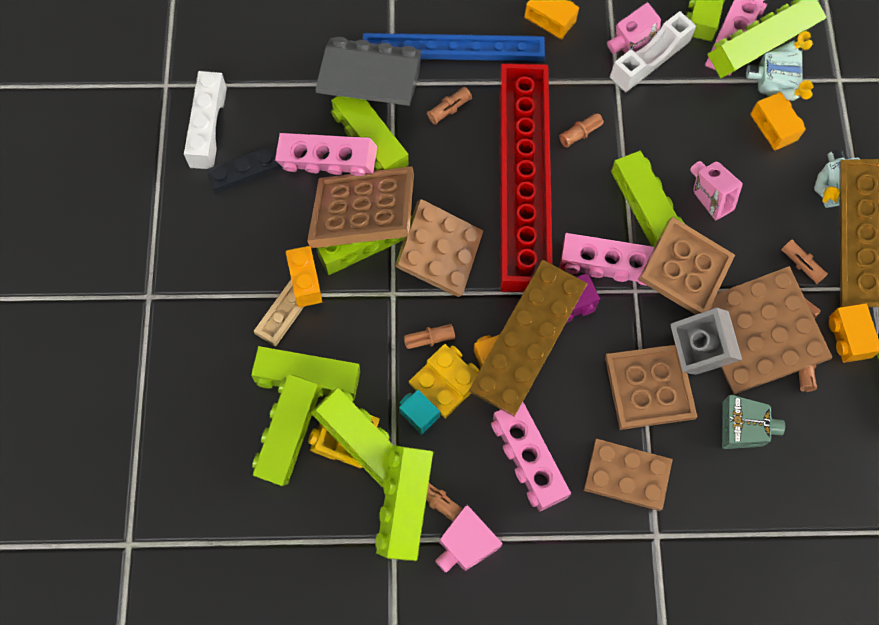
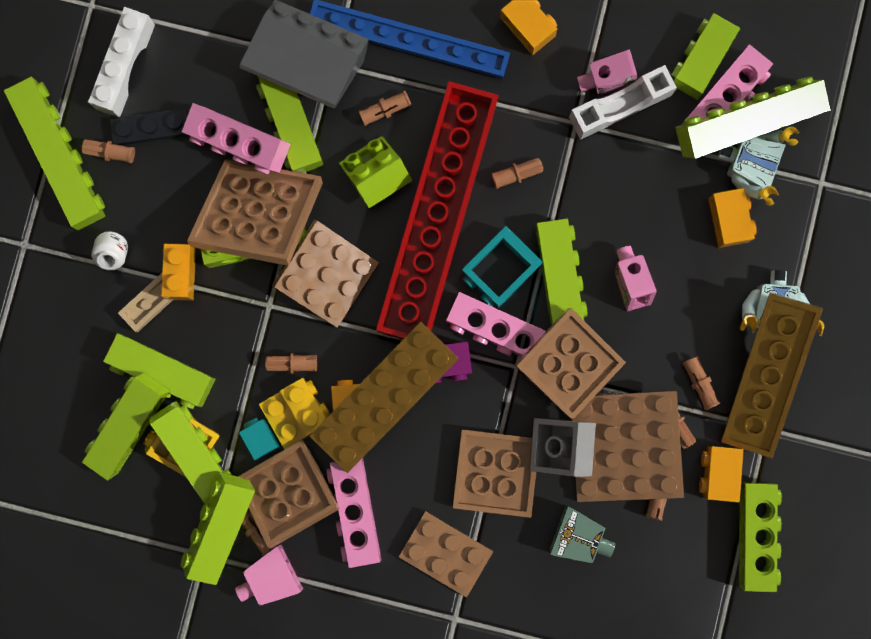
camera: 20 degrees right, 15 degrees up
(162, 209) = (55, 153): none -> lime brick
(209, 196) = (108, 150): none -> nougat axle
(232, 277) = (109, 250): none -> white head
(458, 155) = (375, 171): none -> lime slope
(464, 454) = (288, 494): none -> medium nougat plate
(603, 188) = (518, 249): none -> teal window

